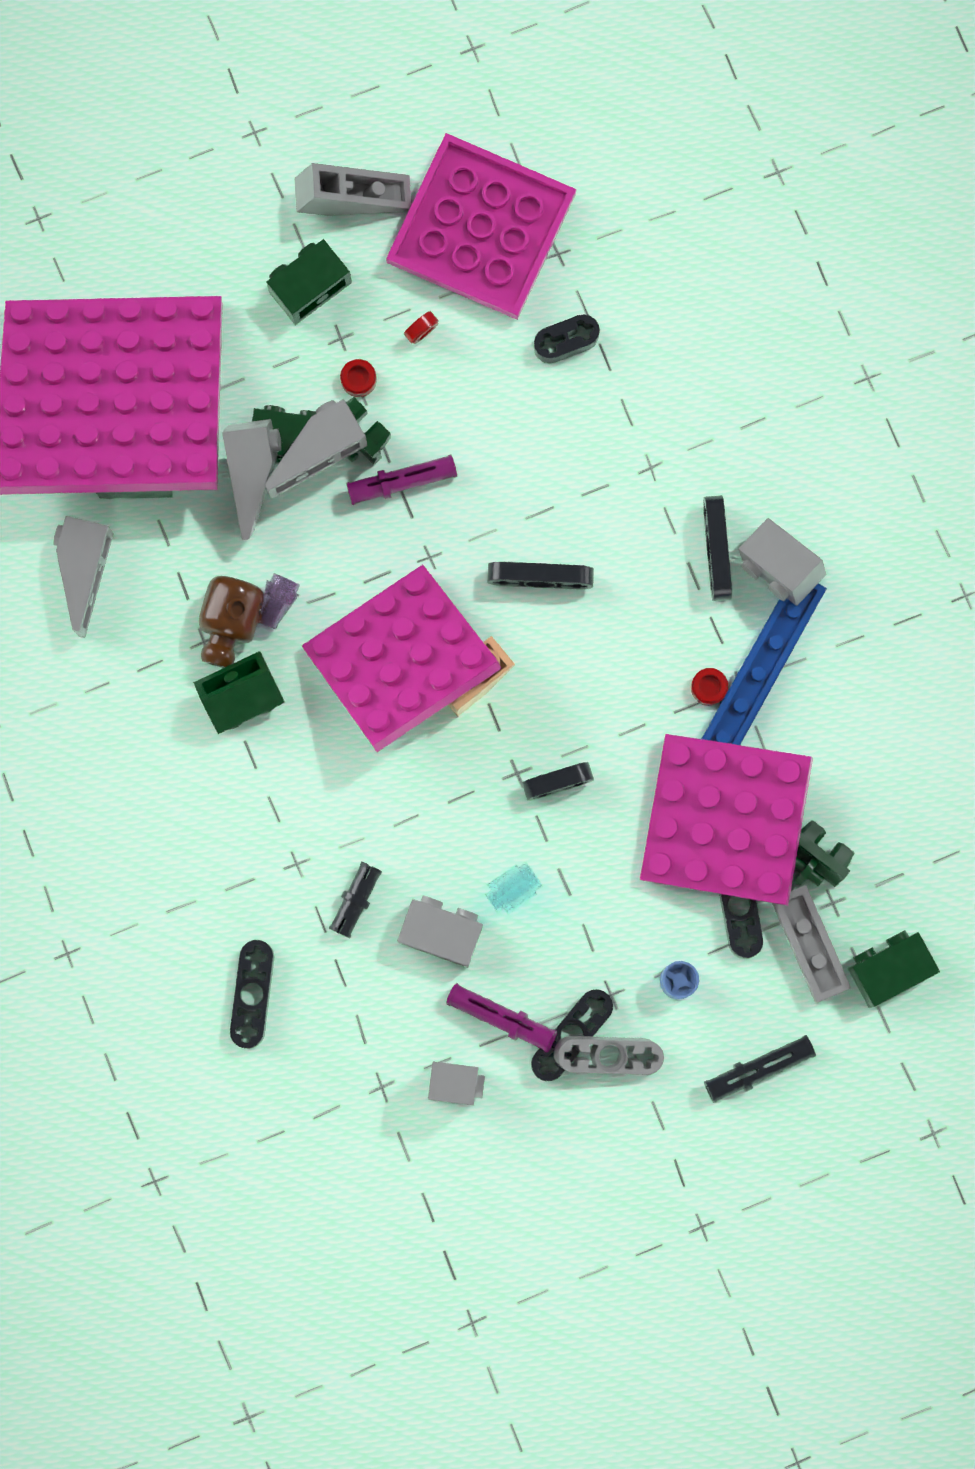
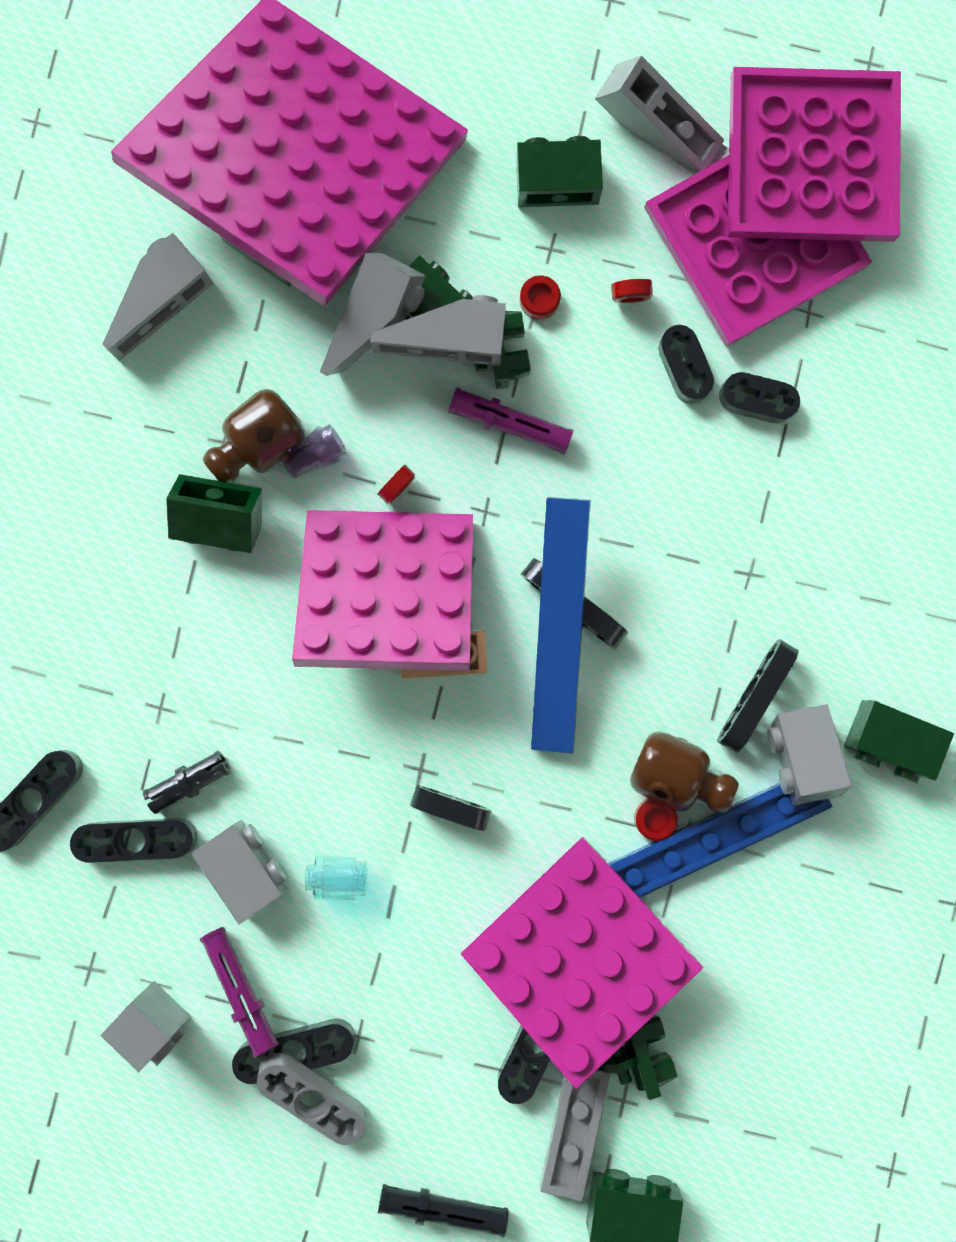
camera: 30 degrees right, 5 degrees up
(319, 979) = (102, 830): none -> black beam
(353, 581) = (396, 484): none -> red tile
(481, 144) = (814, 154): none -> dark pink plate
(501, 345) = (694, 360): none -> black beam
(542, 595) = (560, 623): none -> blue tile
(682, 975) = (430, 1084): medium blue wheel -> none
(700, 642) = (678, 774): none -> reddish brown piece
(838, 509) = (898, 740): none -> dark green brick

